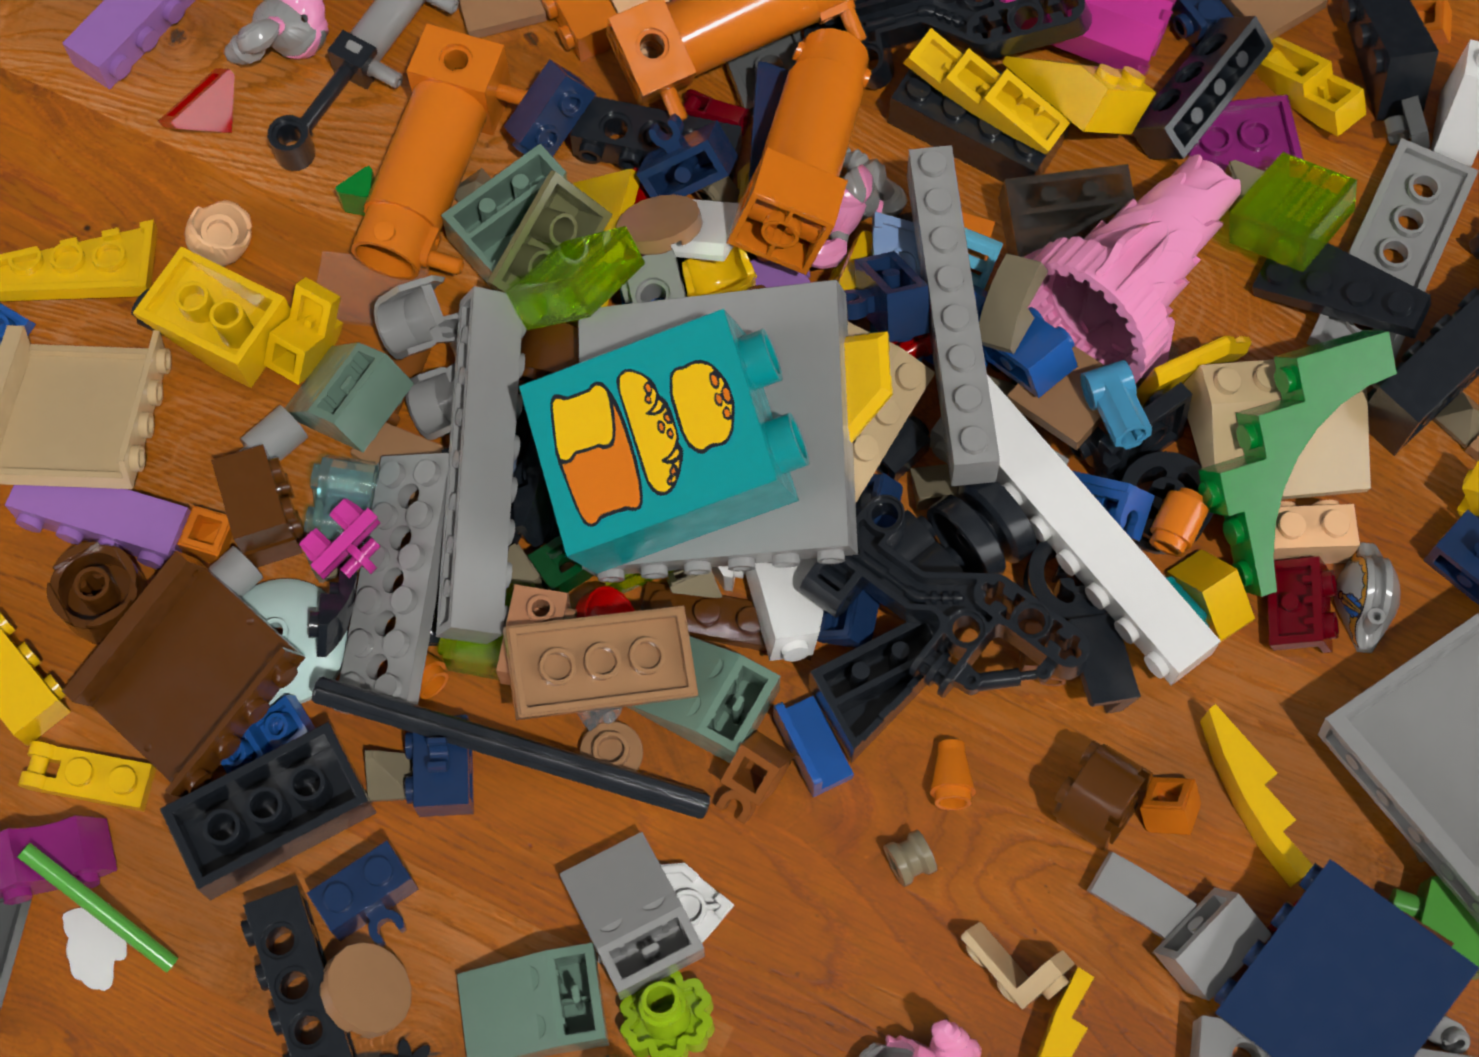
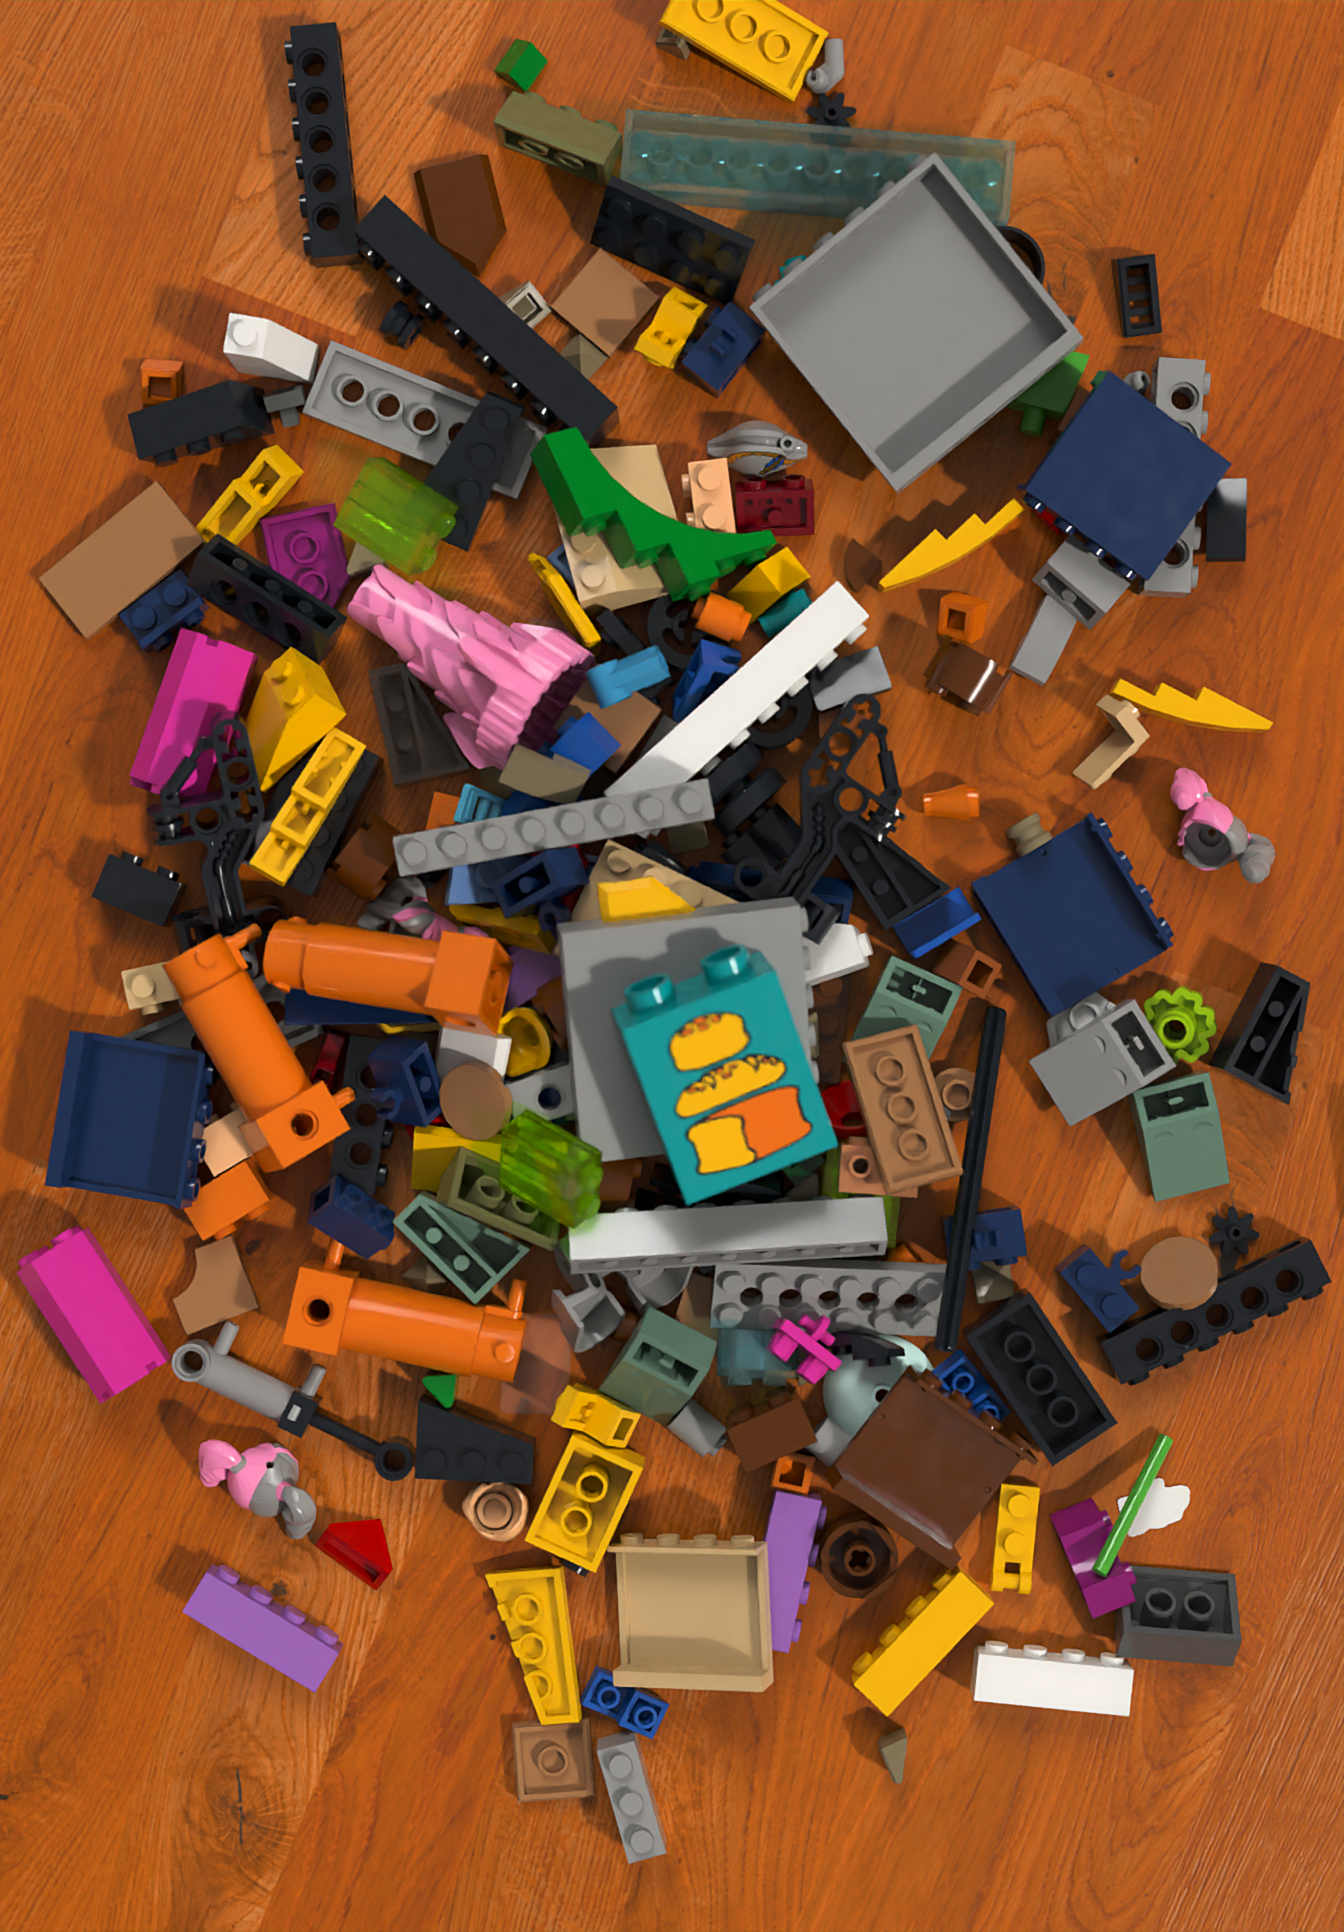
camera: 90 degrees left, 20 degrees up
(290, 211) = (470, 1448): none -> black wedge
(807, 900) = (1072, 915): none -> dark blue panel
(925, 133) = (367, 858): none -> reddish brown brick
(1232, 695) = (859, 565): none -> reddish brown tile

